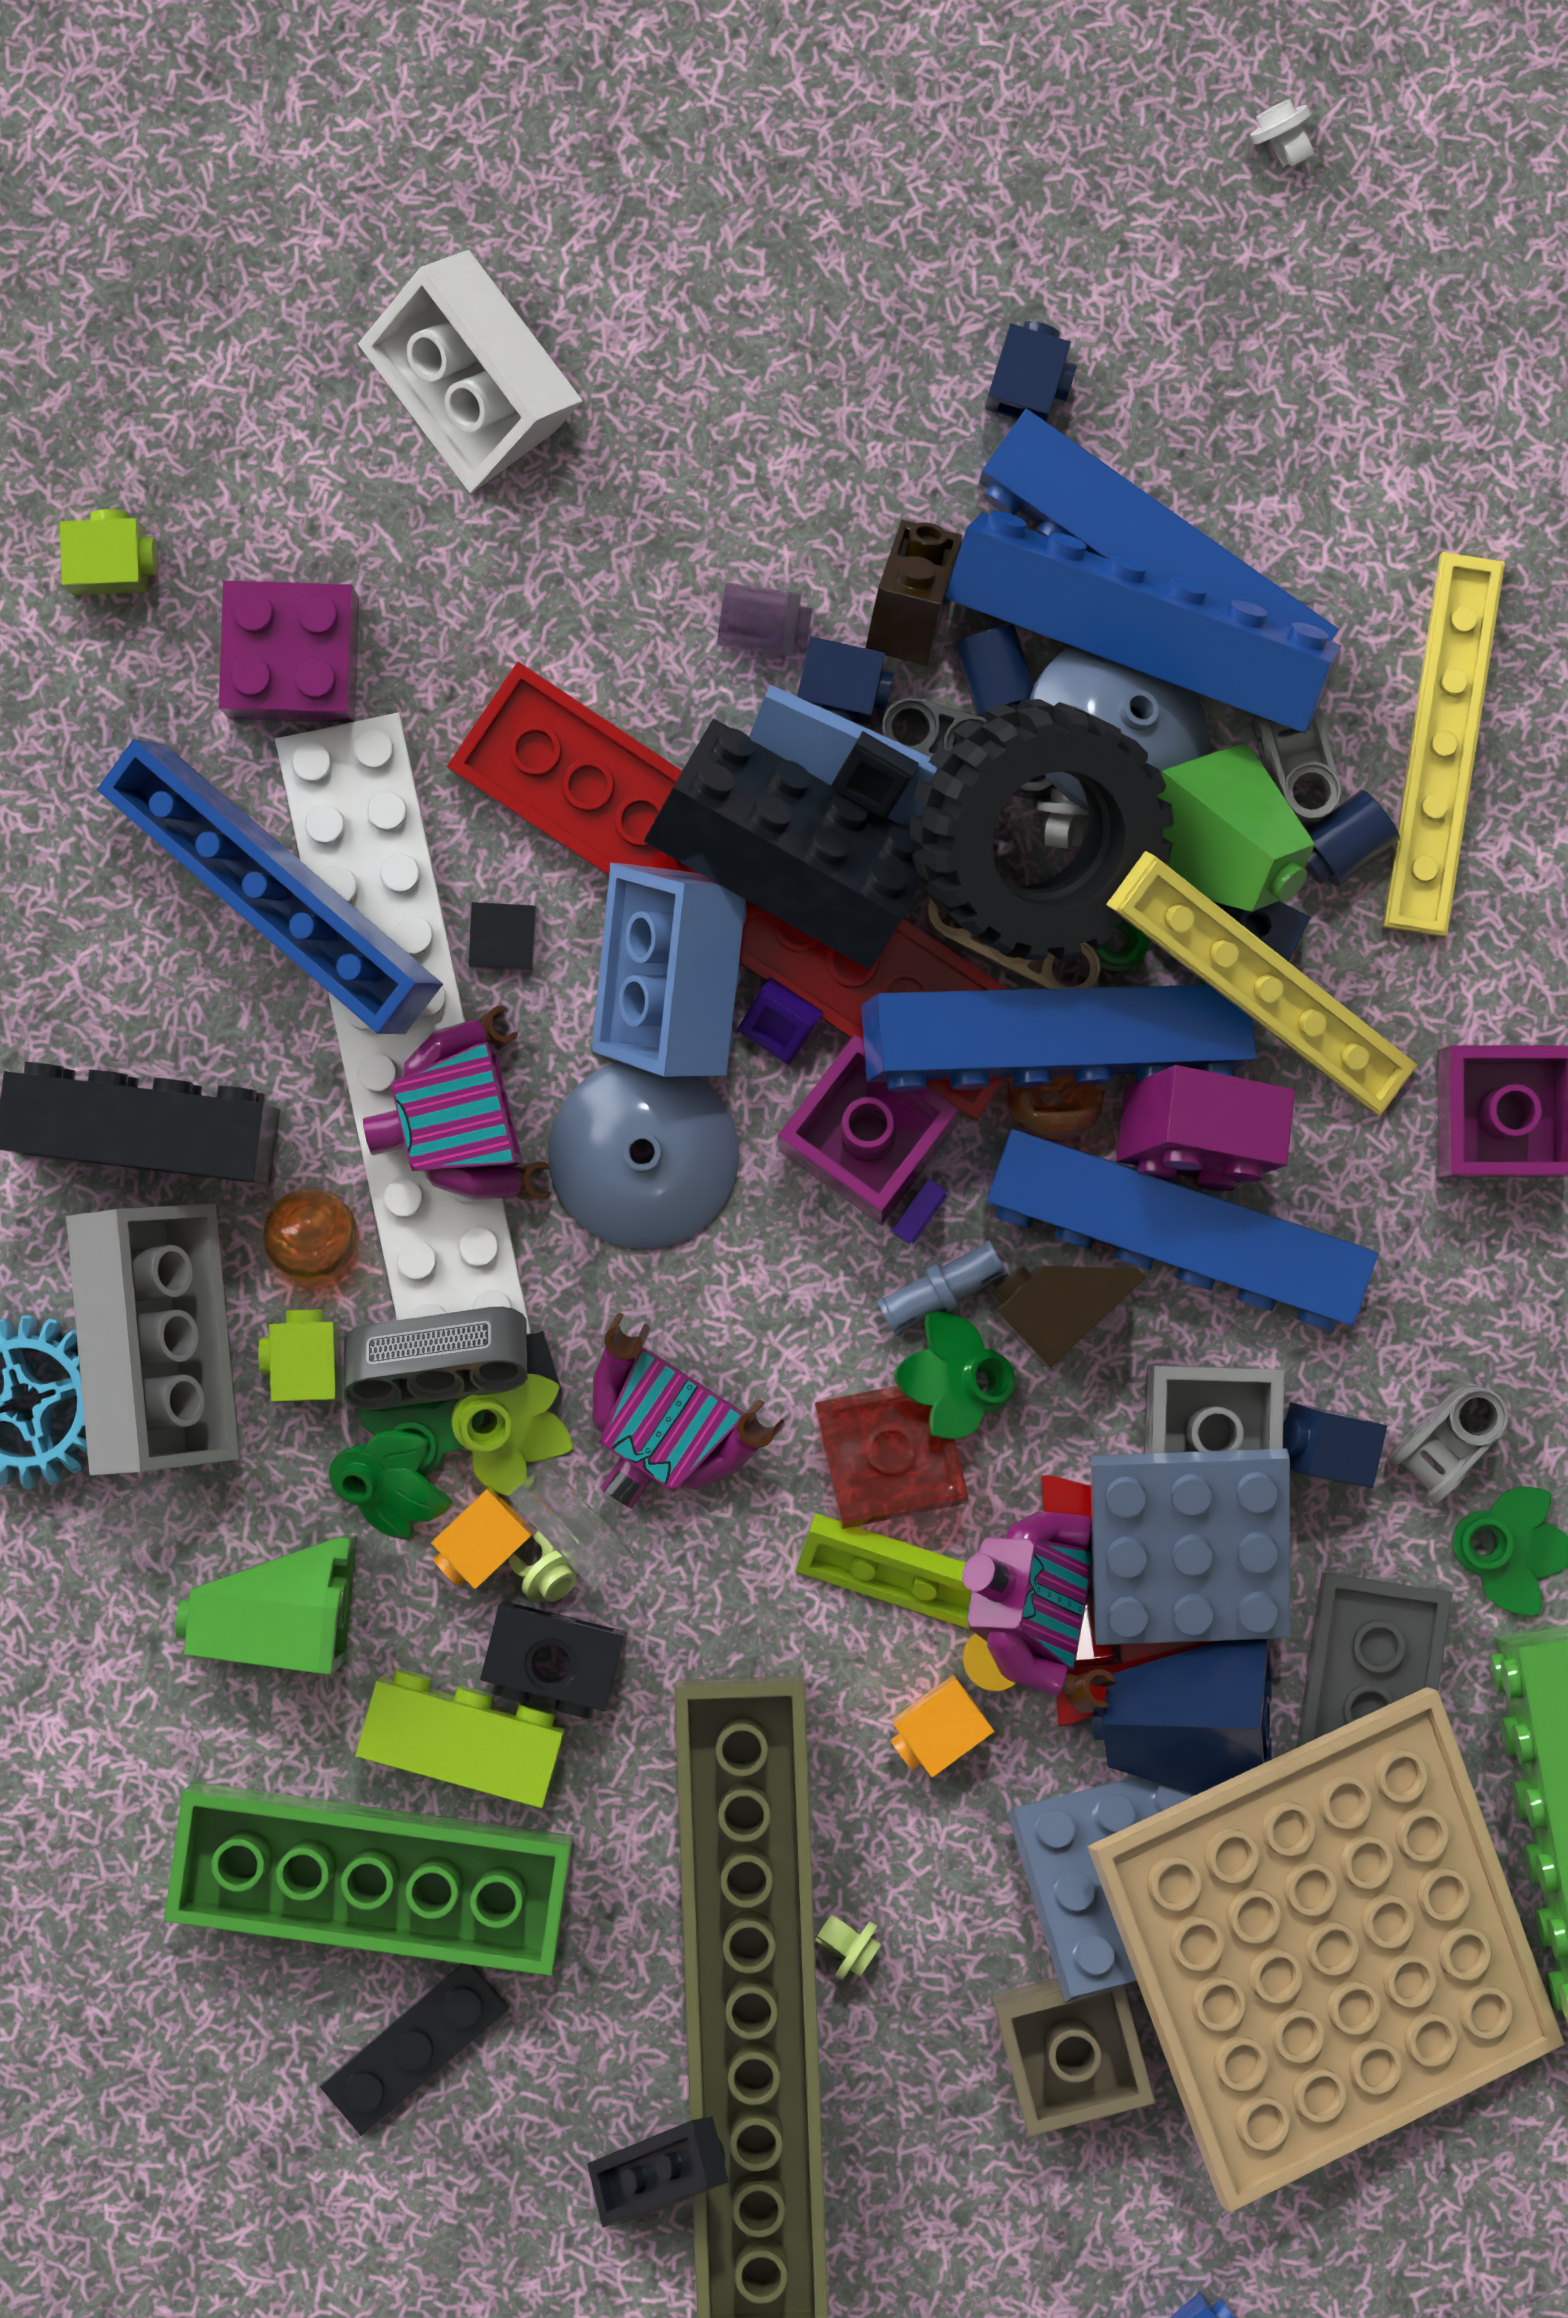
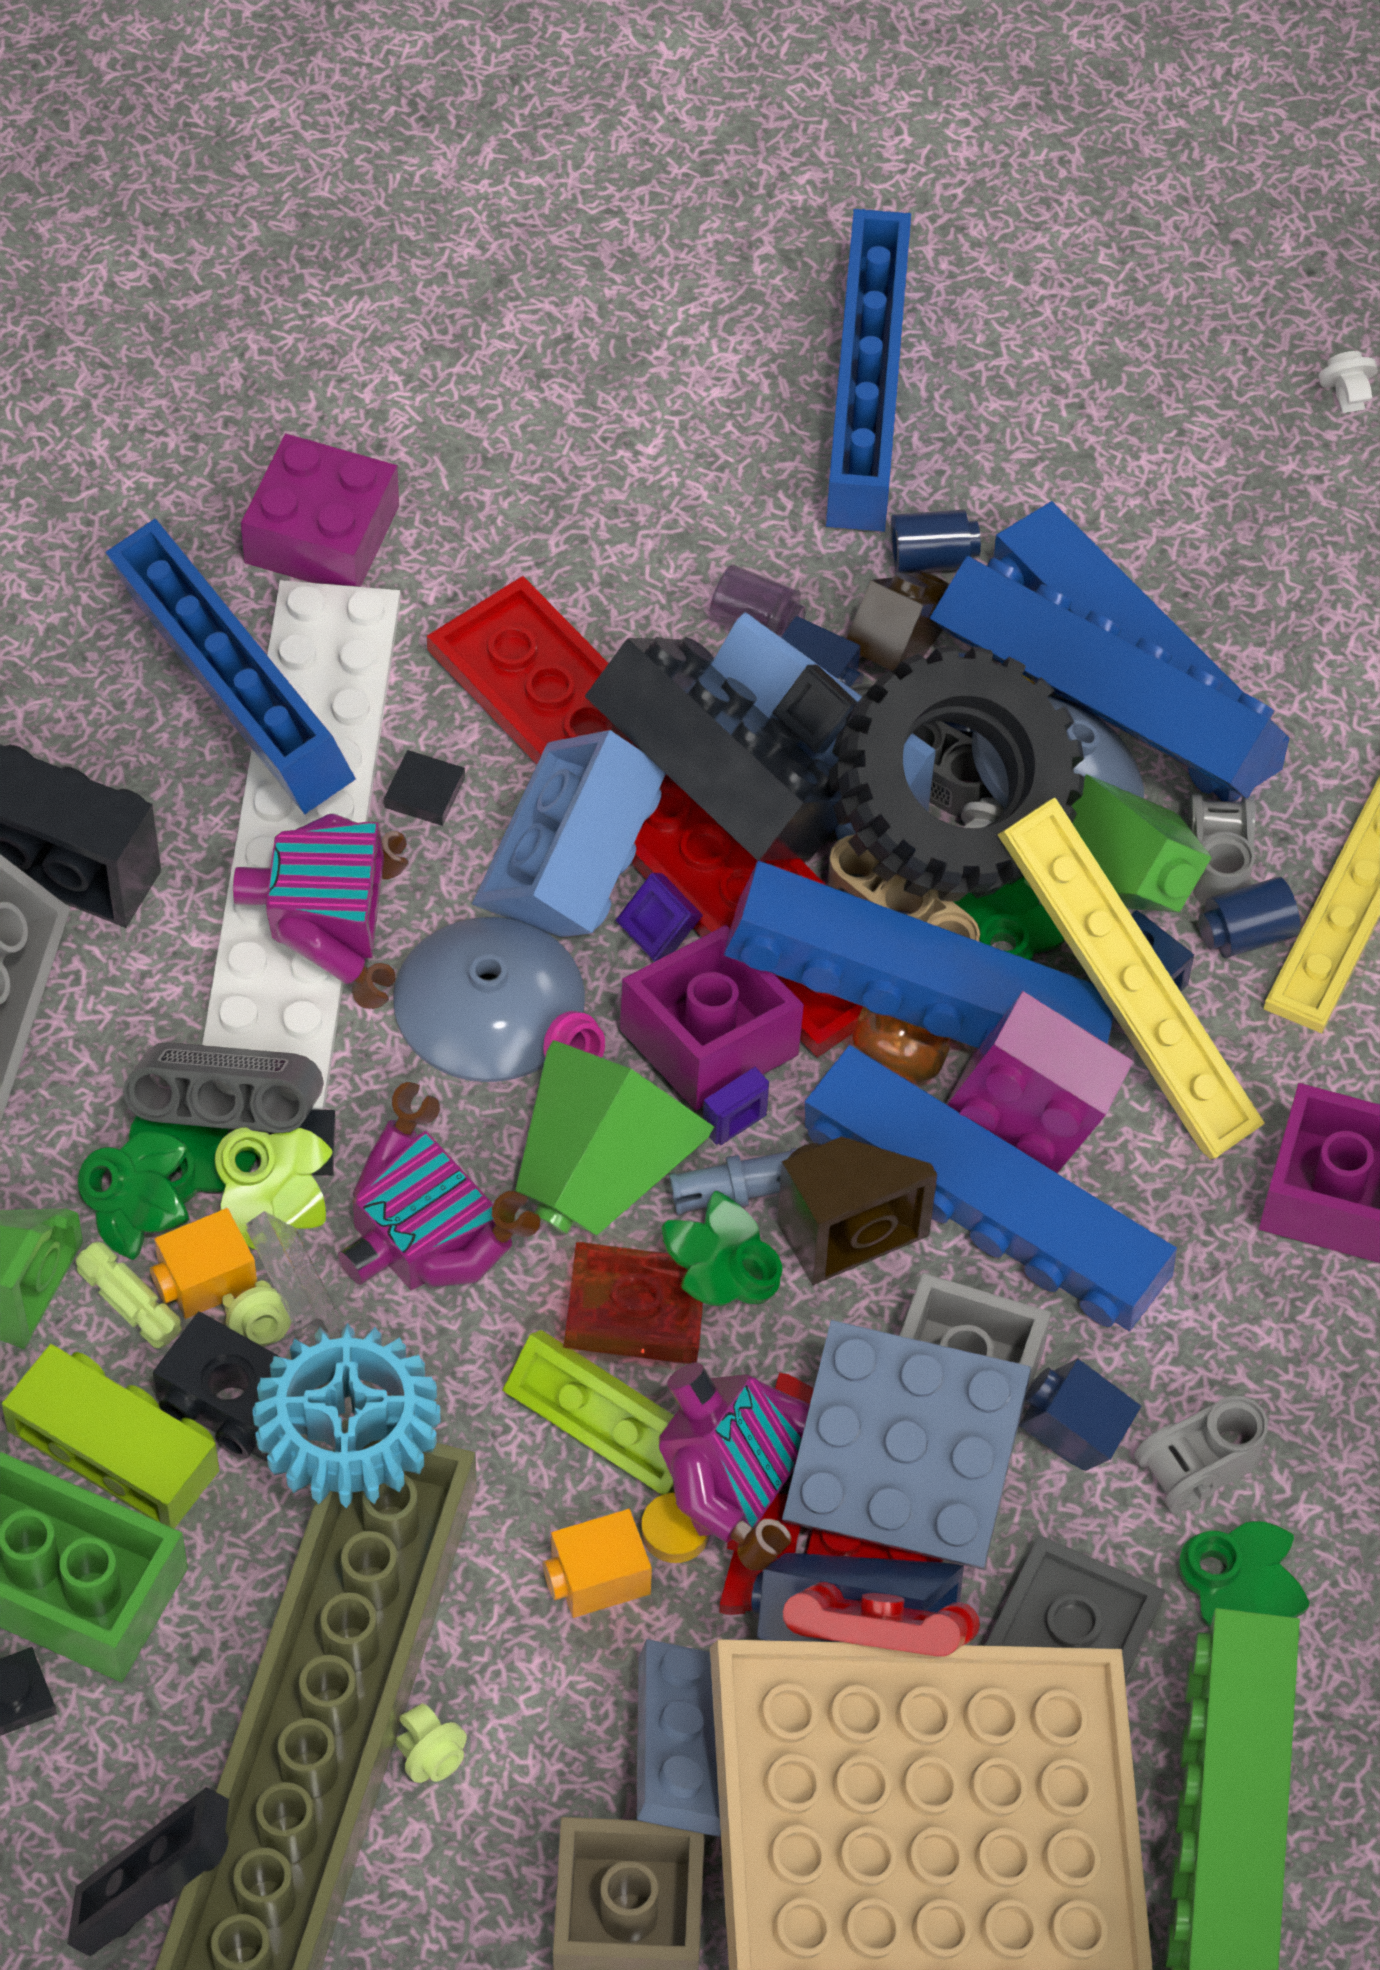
camera: 15 degrees right, 30 degrees down
(106, 554) = (188, 407): lime brick -> none
(302, 1357) = (95, 1063): lime brick -> none
(311, 1239) = (145, 977): clear orange hair -> none
(420, 1582) = (128, 1295): none -> yellowish green axle
(468, 369) = (563, 359): white slope -> none
(699, 1755) = (294, 1408): none -> medium azure gear
(744, 1189) = (579, 1029): none -> dark pink plate
(789, 286) = (868, 371): none -> blue brick
(804, 1295) = (599, 1140): none -> bright green slope
(915, 480) = (933, 540): none -> dark blue brick
(1031, 371) = (1070, 479): dark blue brick -> none
(1229, 1767) = (879, 1621): none -> plate

